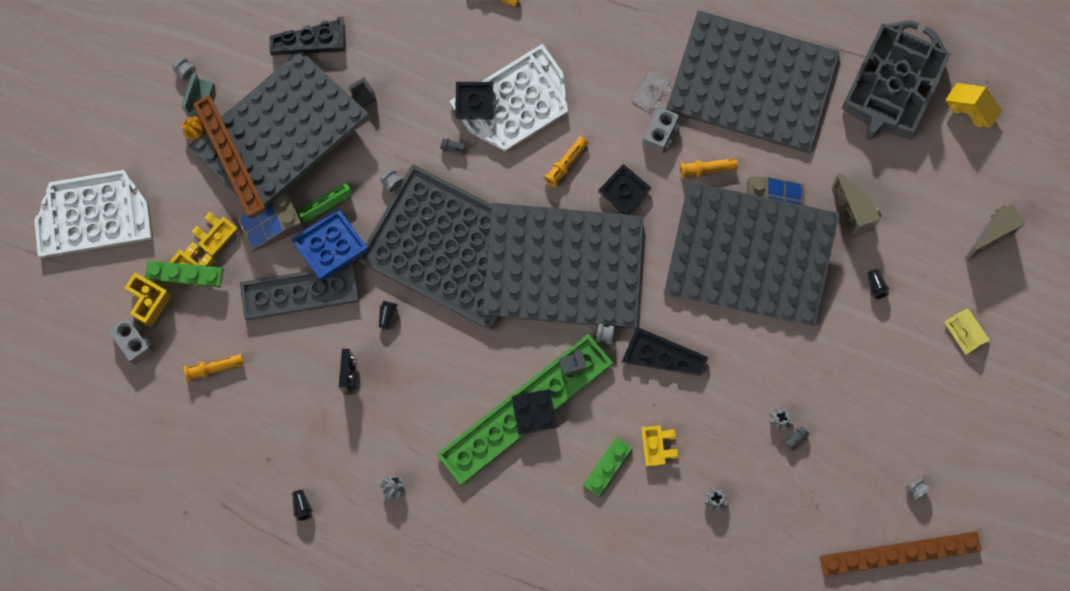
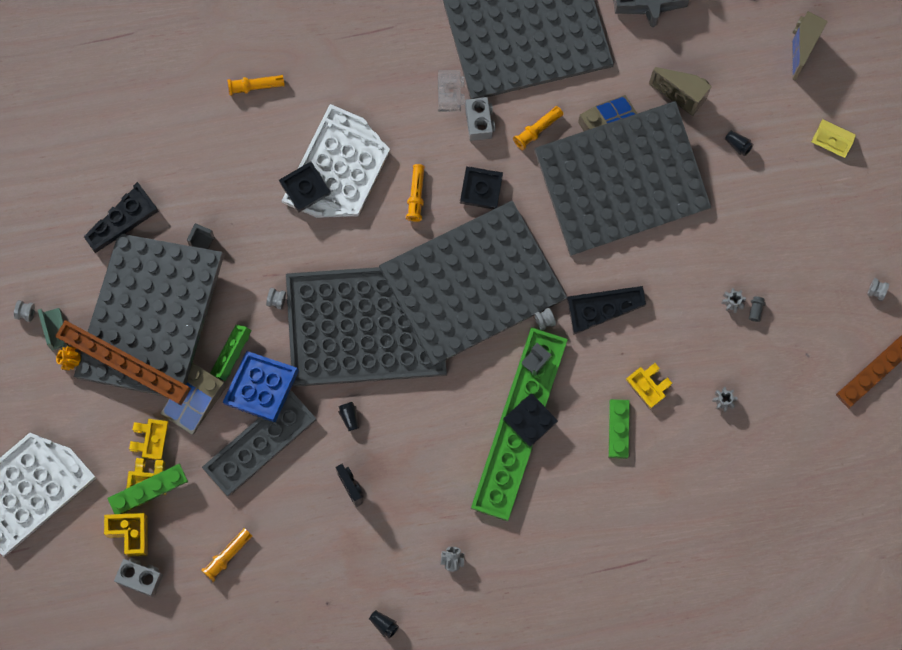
camera: 40 degrees left, 0 degrees up
(452, 146) = (309, 238): dark grey pin -> none

